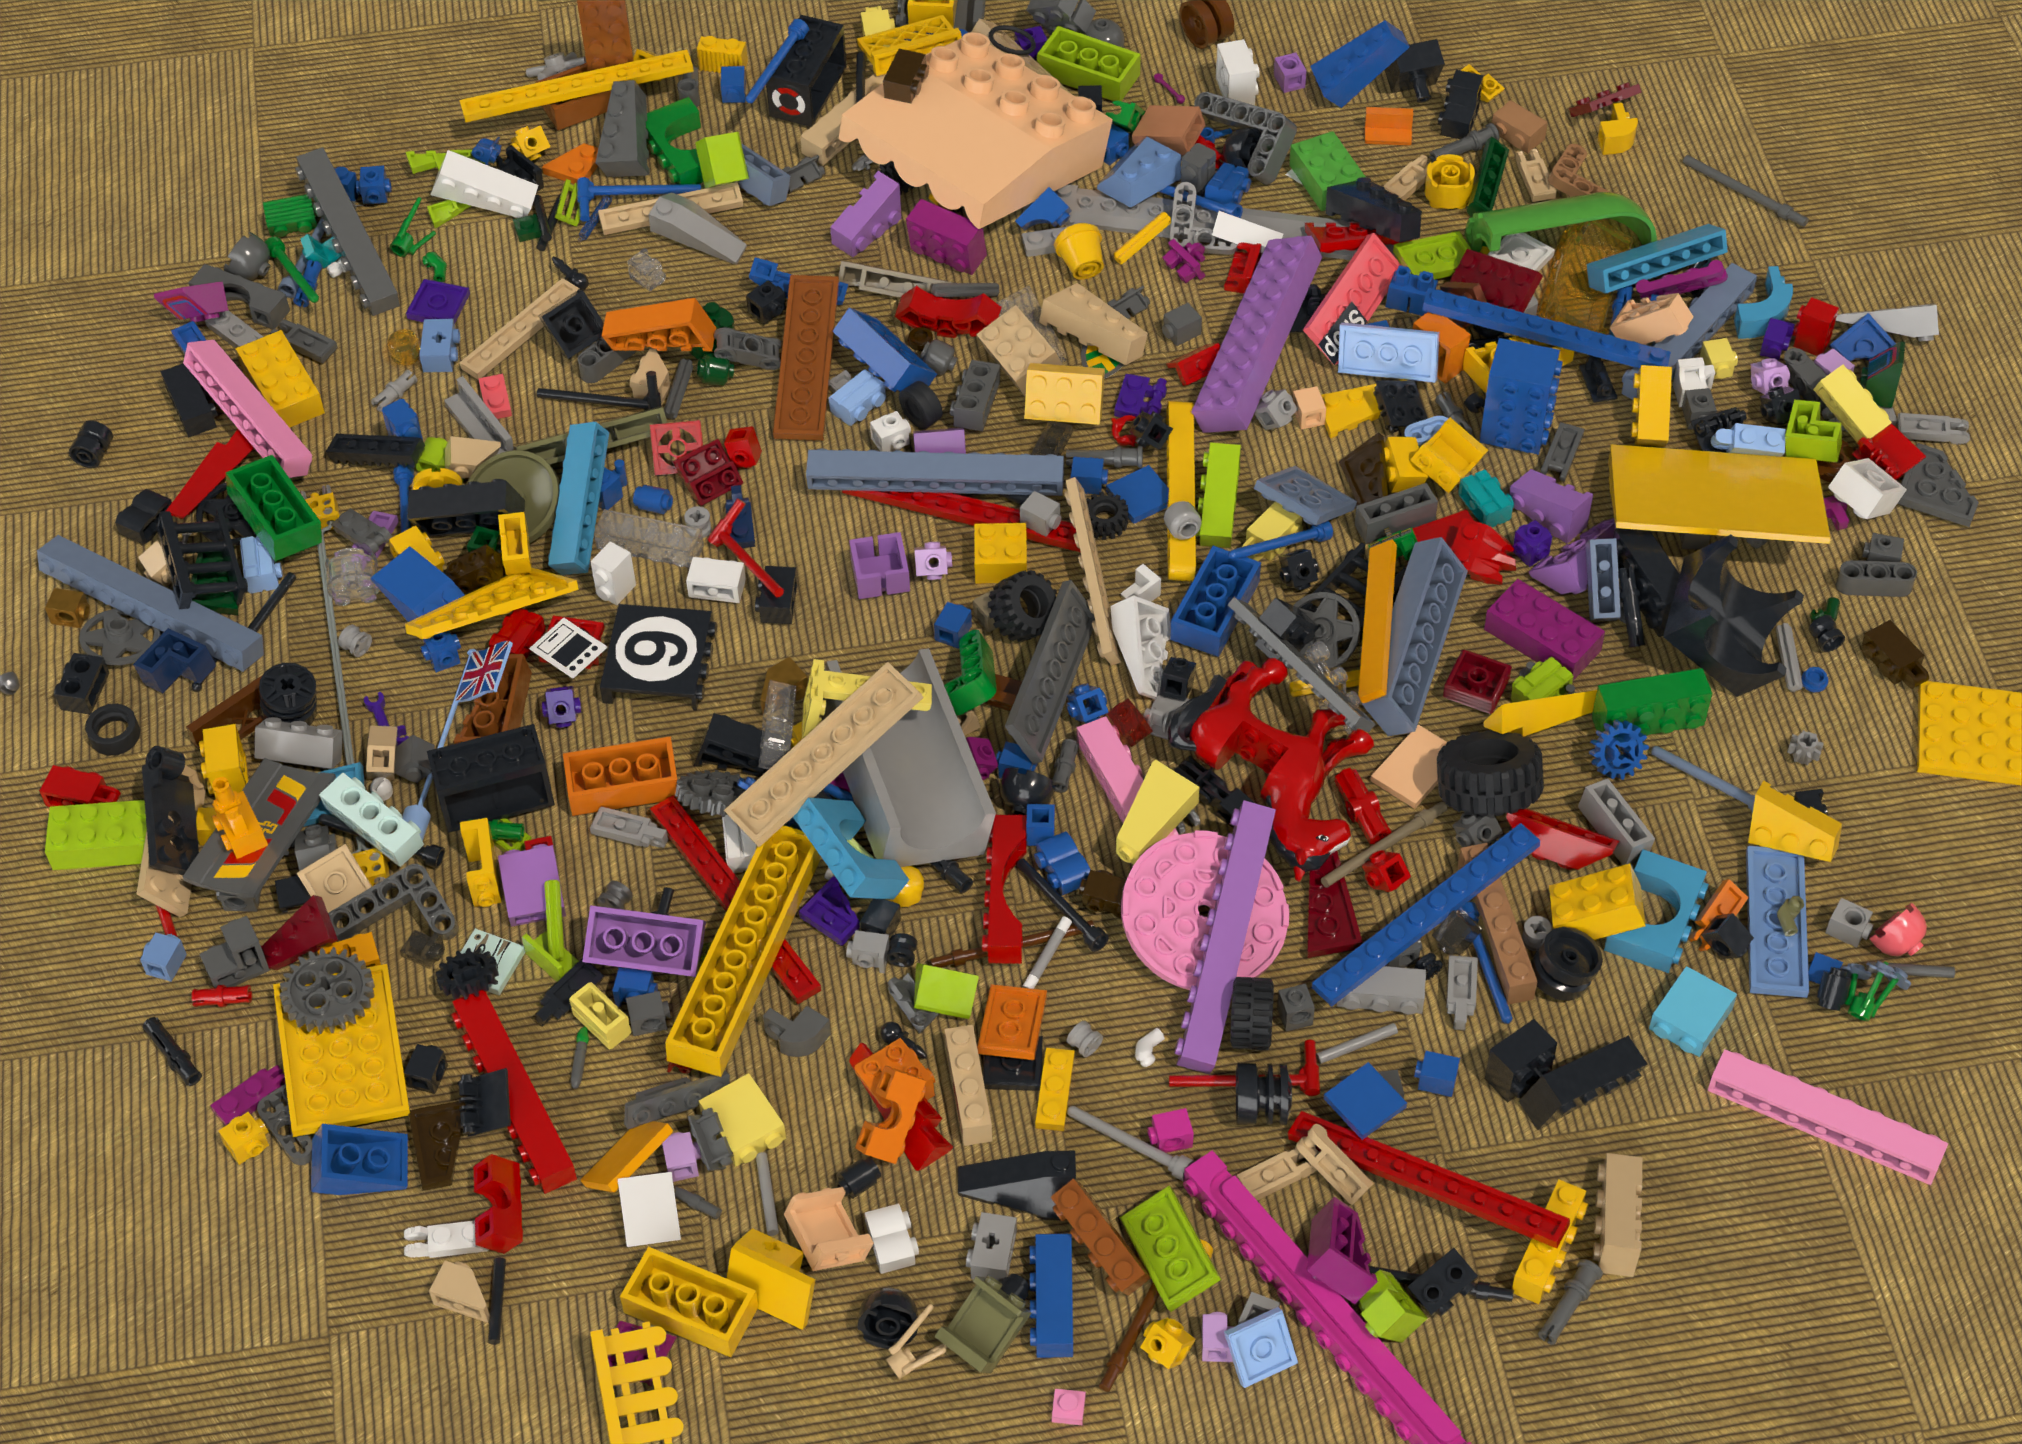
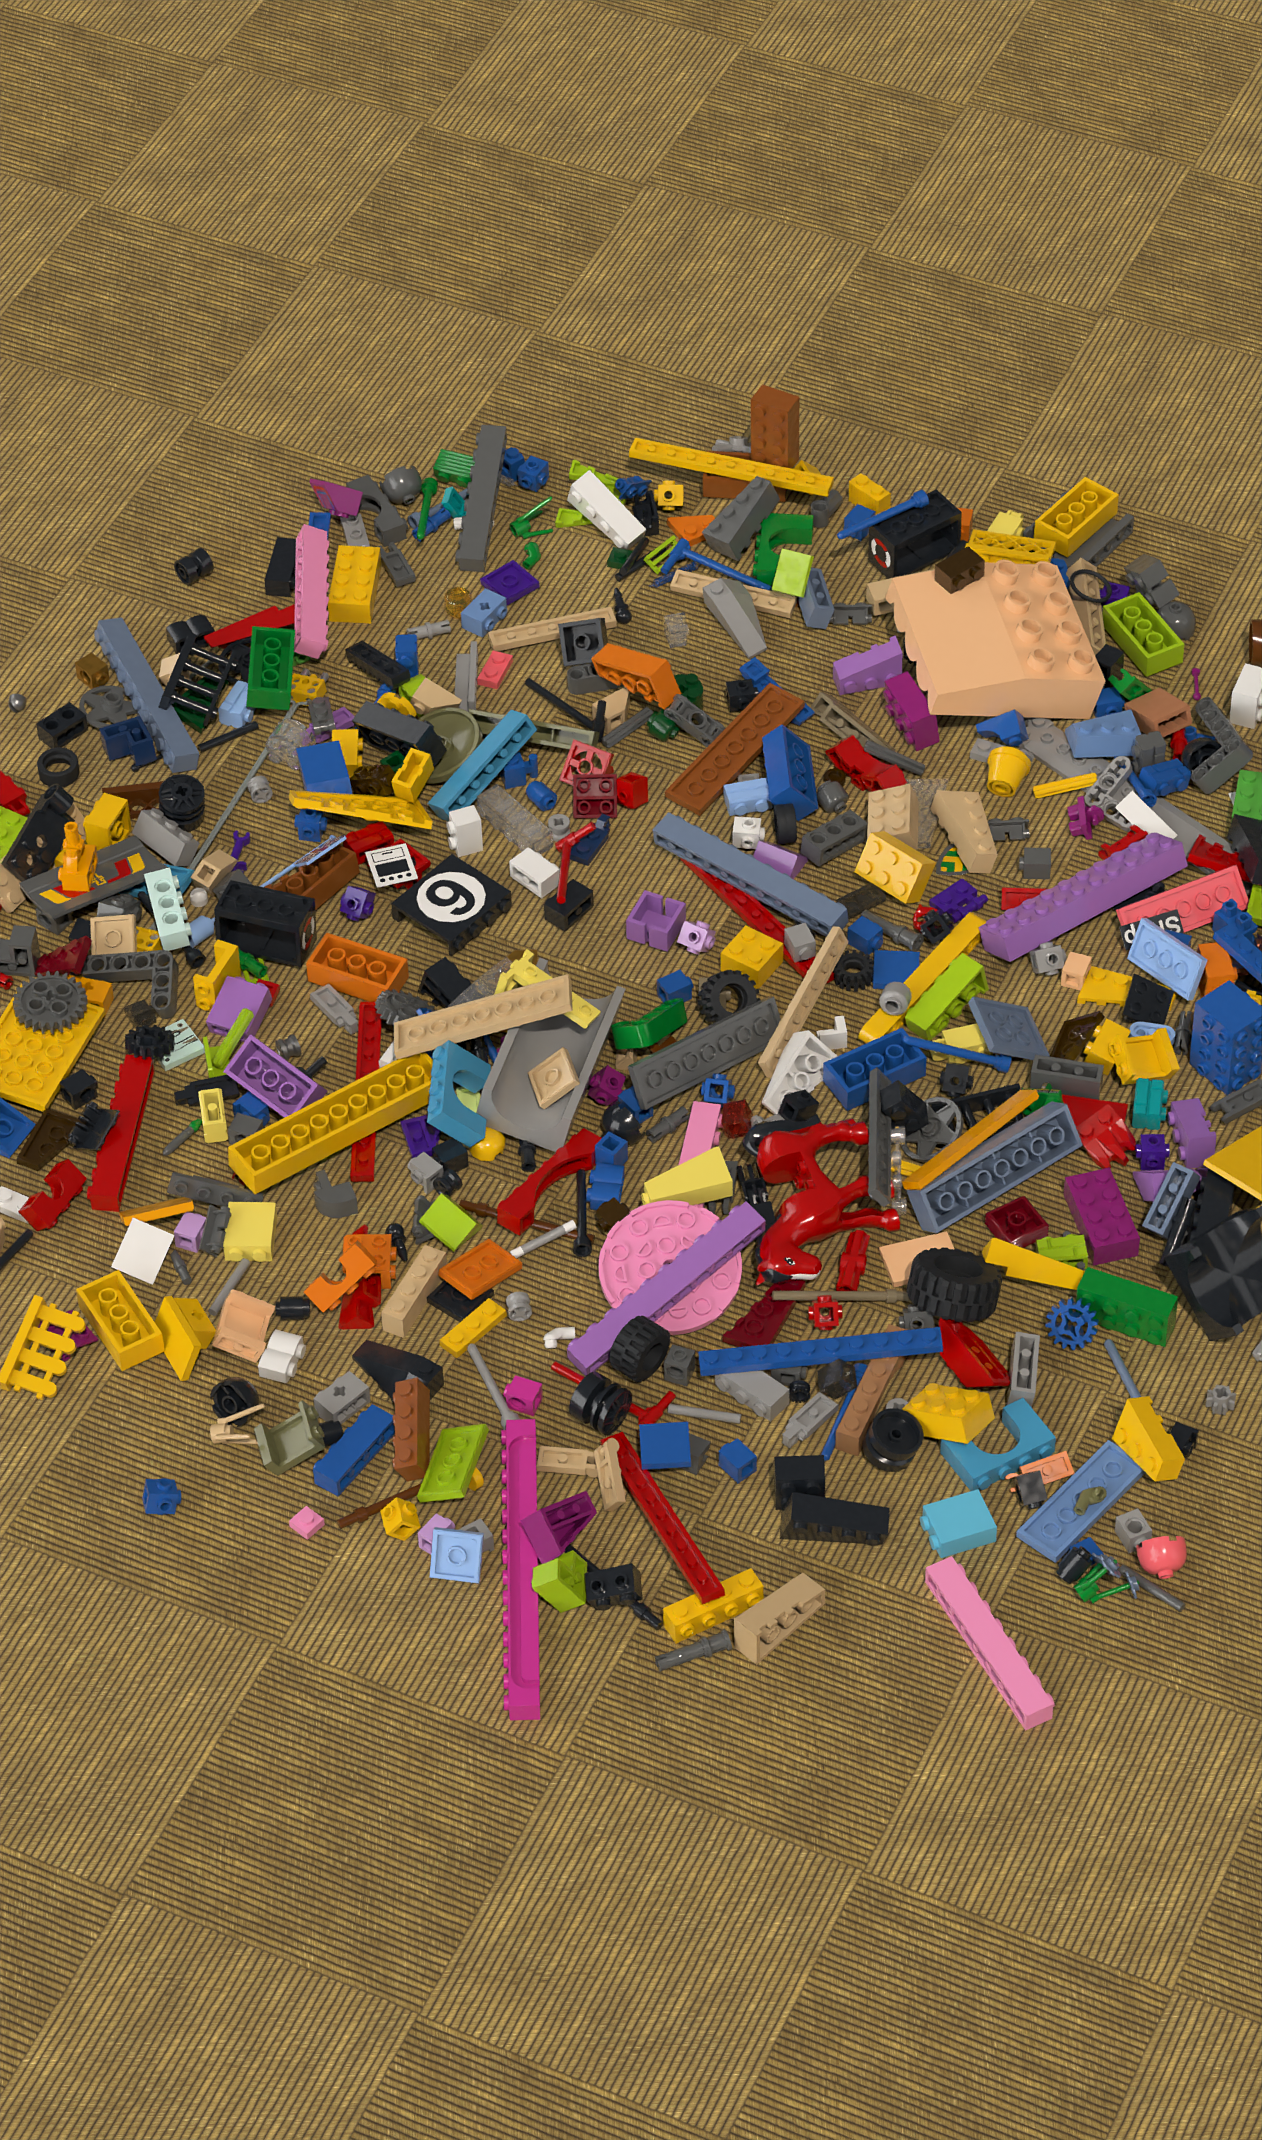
camera: 35 degrees right, 5 degrees down
(936, 779) = (553, 1078): none -> tan tile

